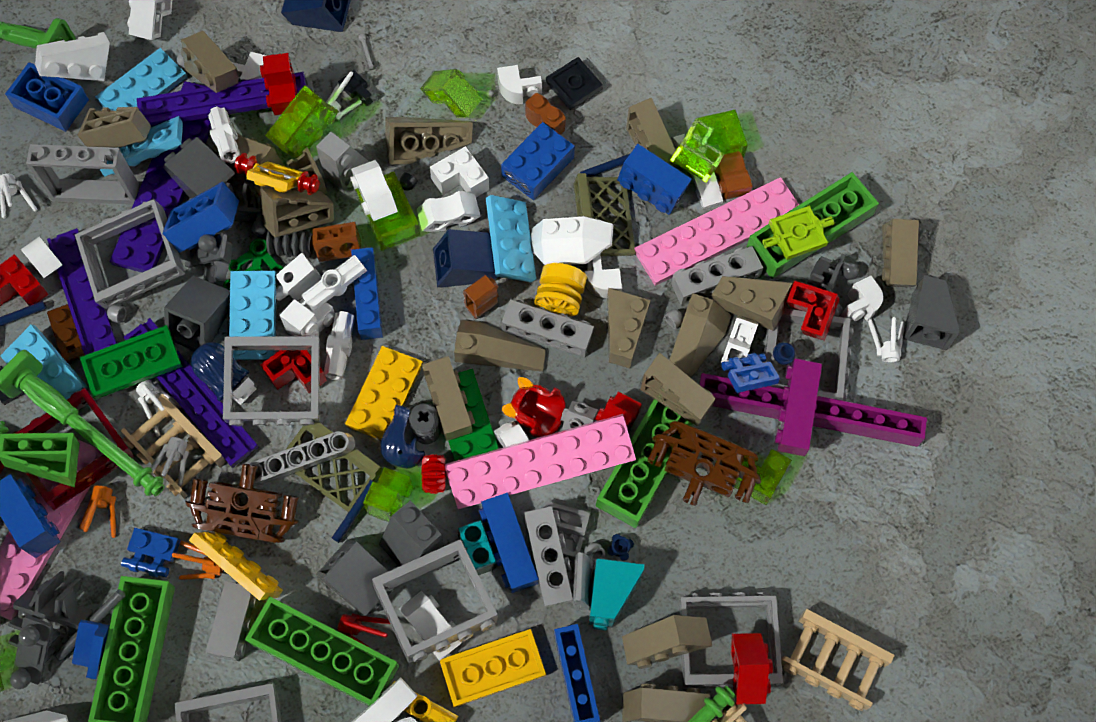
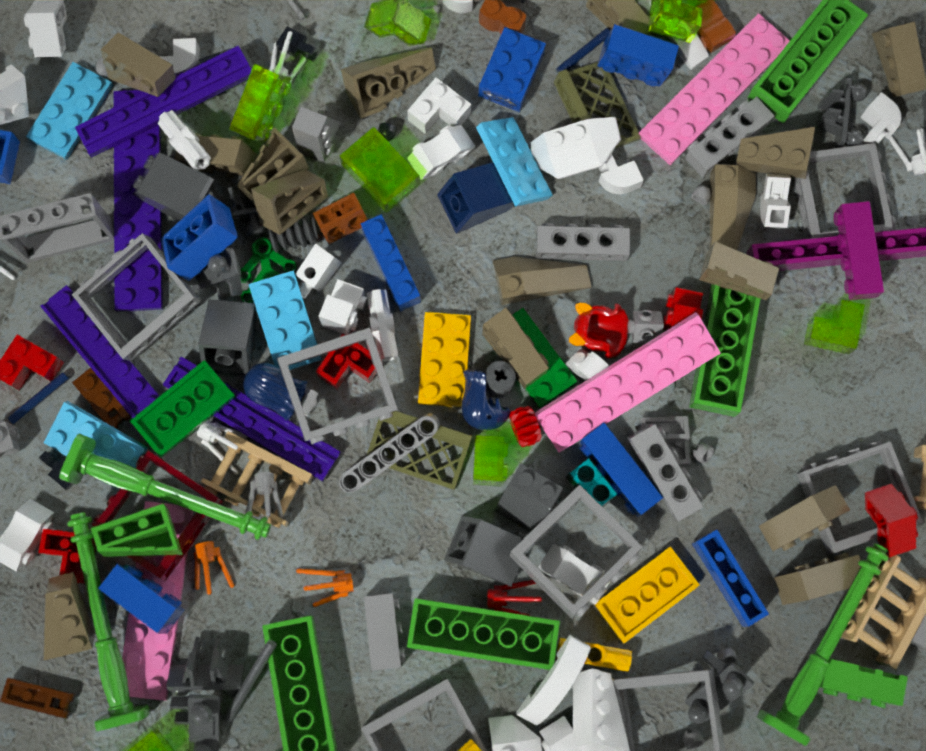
camera: 20 degrees left, 10 degrees up
(41, 257) = (46, 329): white brick -> none
(90, 646) = (258, 701): blue panel -> none
(114, 128) = (64, 168): dark tan wedge -> none
(116, 313) = (144, 361): light grey hinge -> none
(154, 545) = (276, 583): blue plate -> none
(159, 139) = (106, 172): medium azure plate -> none
(236, 565) = (369, 578): yellow plate -> none
(241, 523) = (352, 534): reddish brown piece -> none
(276, 175) = (259, 170): plate -> none
(279, 80) = (222, 64): red brick -> none
(323, 291) = (367, 251): white piece -> none
(351, 516) = (460, 486): dark blue bar -> none
(374, 190) = (363, 154): white brick -> none
(481, 296) = (507, 231): dark orange brick -> none
(560, 289) = (584, 200): yellow wheel -> none
(582, 581) = (705, 486): light grey slope -> none
(611, 590) = (736, 487): teal slope -> none
(625, 324) = (658, 215): dark tan wedge -> none
(626, 543) = (731, 435): dark blue plate -> none
(710, 451) = (800, 327): reddish brown piece -> none
(753, 376) = (803, 234): blue plate -> none
(784, 353) = (824, 199): dark blue plate -> none
(798, 232) = (801, 70): lime plate -> none
(819, 307) = (847, 142): red brick -> none

